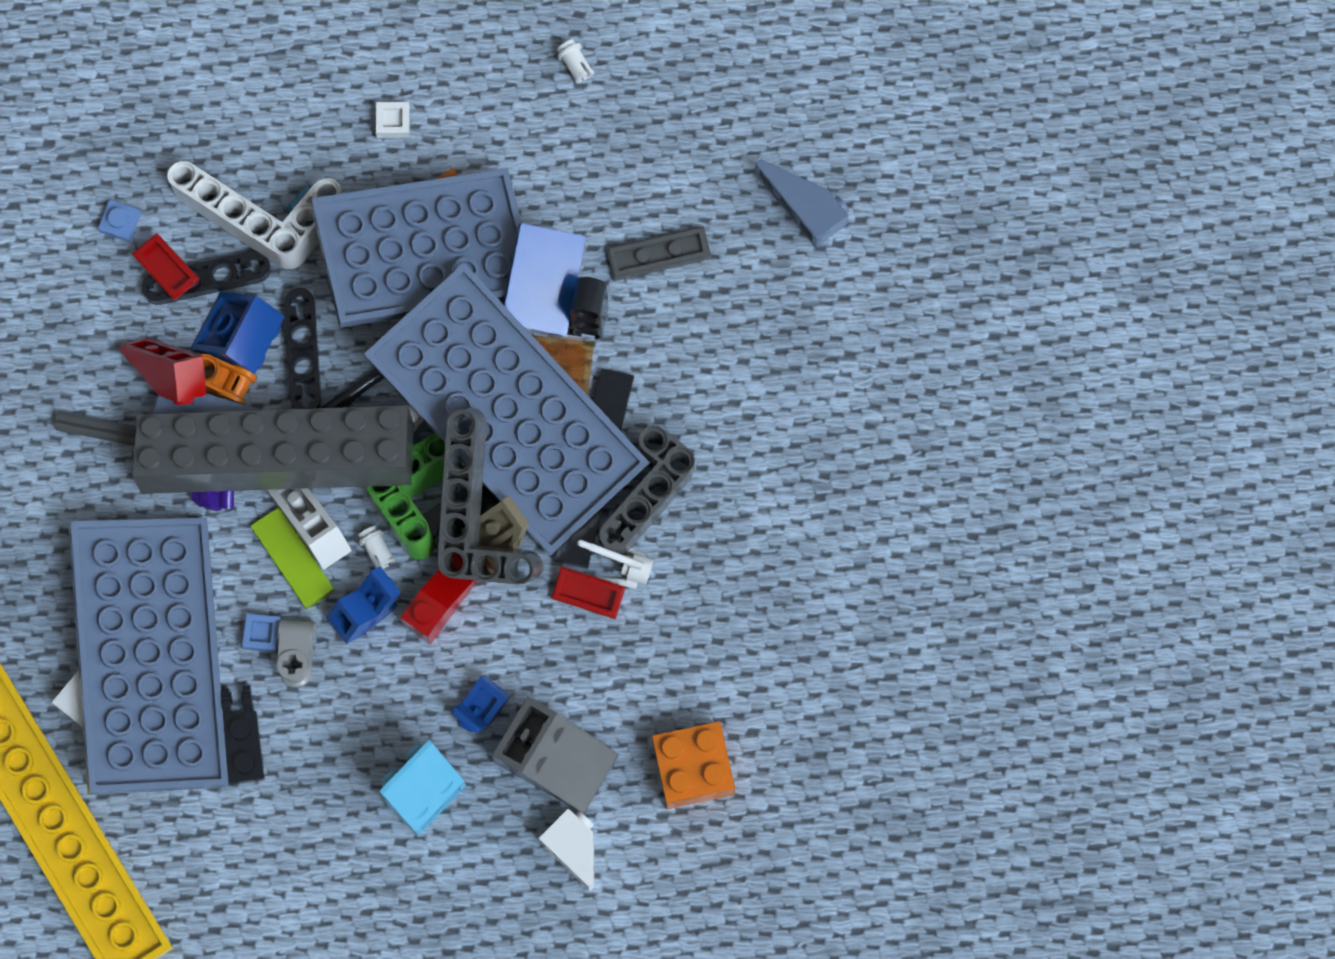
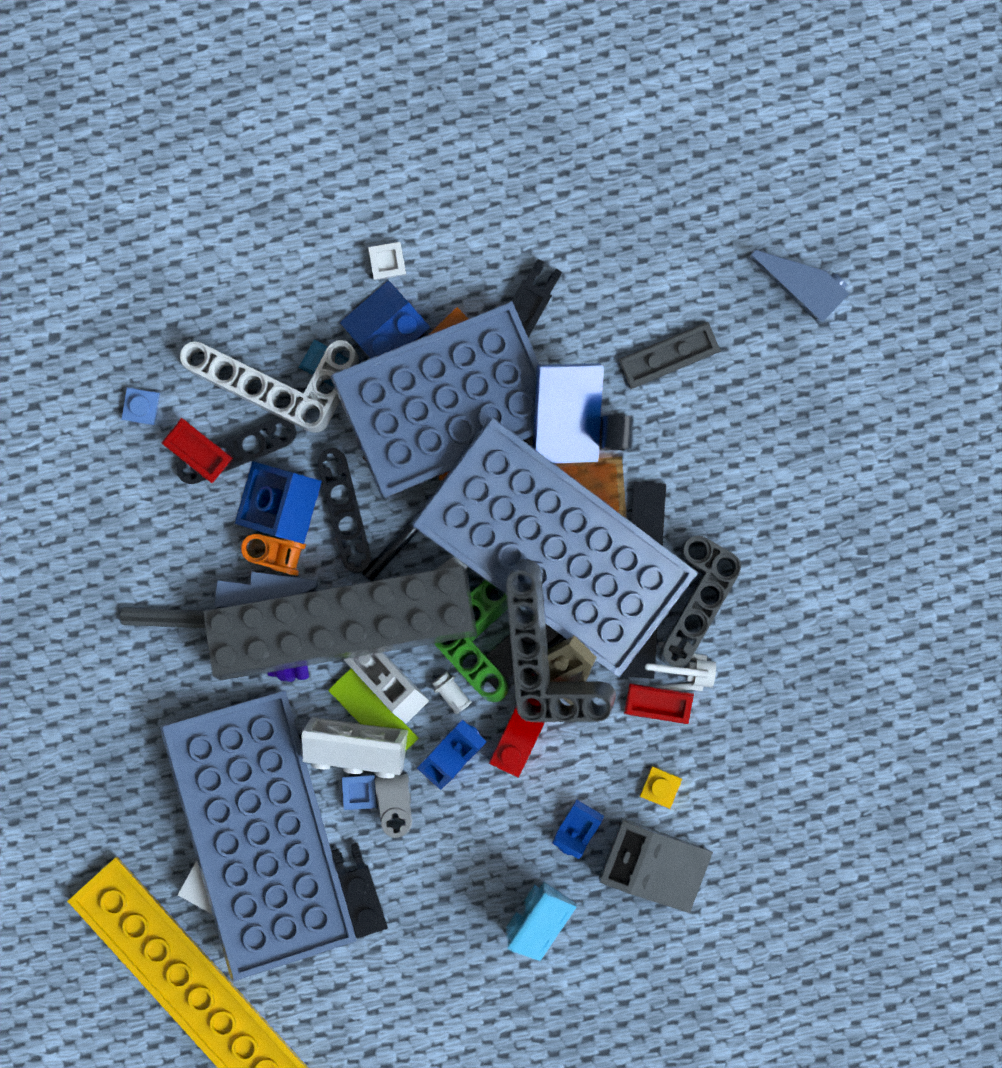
camera: 10 degrees left, 15 degrees up
(168, 369) = (220, 555): red slope -> none
(264, 583) = (354, 747): none -> white slope
(378, 169) = (384, 322): none -> blue slope
(529, 178) = (531, 300): none -> black hinge
(572, 845) = (686, 946): white slope -> none
(575, 60) = (555, 170): white pin -> none
(576, 679) = (661, 787): none -> yellow plate
(693, 765) = (785, 854): orange brick -> none

